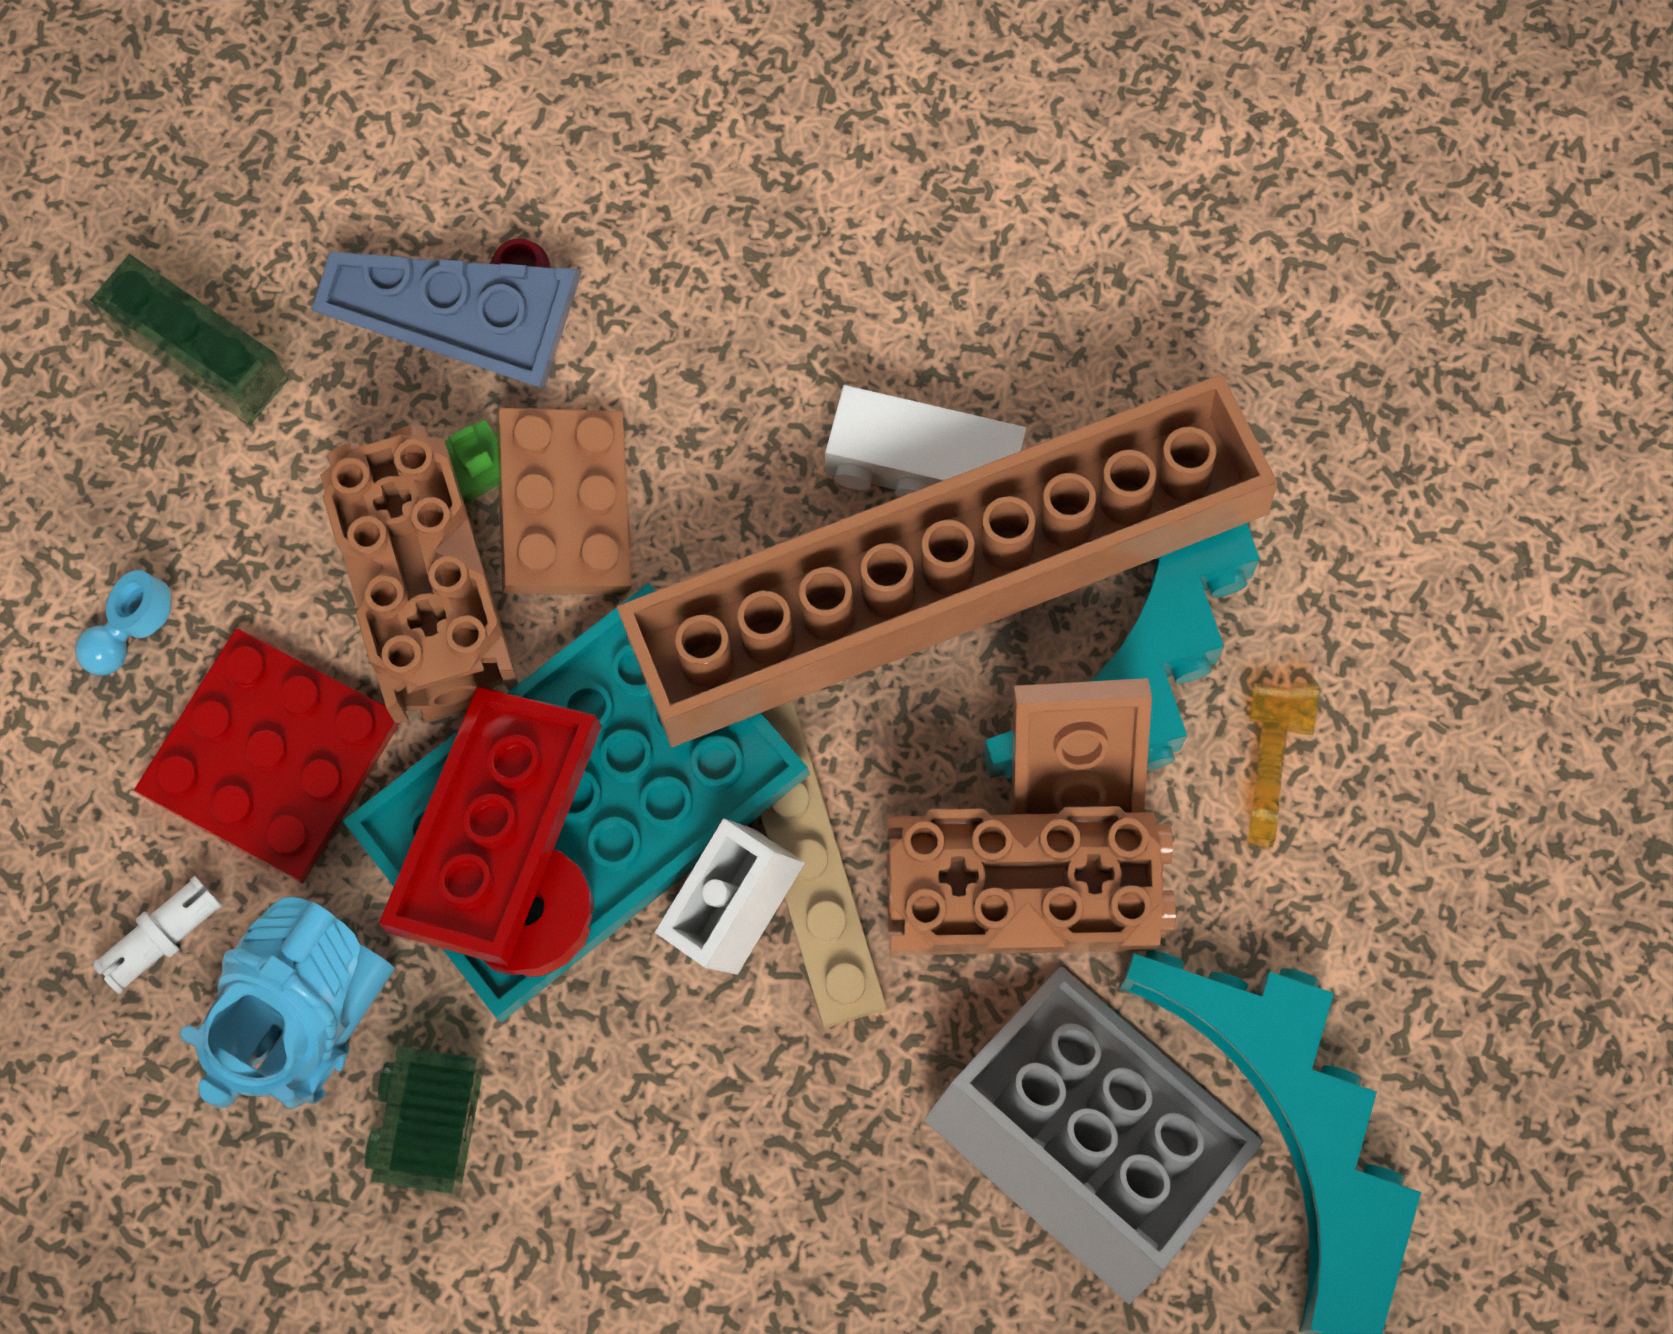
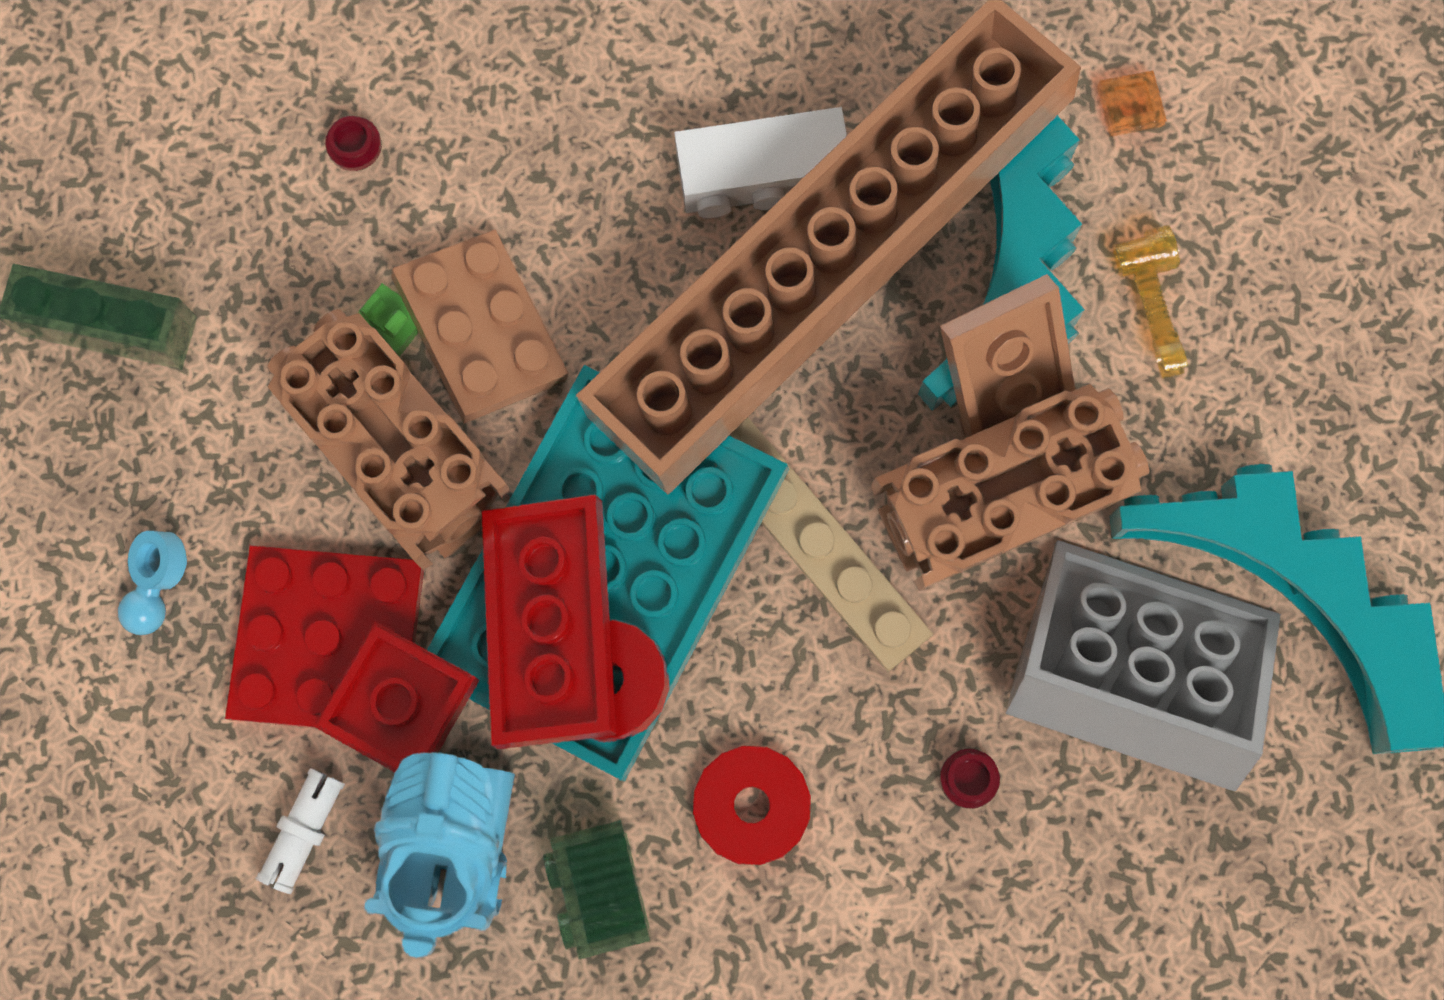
camera: 20 degrees left, 5 degrees up
(308, 839) = (395, 699): none -> red tile
(473, 312) = (322, 197): sand blue wing -> none
(581, 1097) = (787, 797): none -> red tile
(729, 897) = (770, 599): white brick -> none
(858, 1173) = (969, 778): none -> dark red plate
(1340, 545) = (1131, 103): none -> clear orange tile

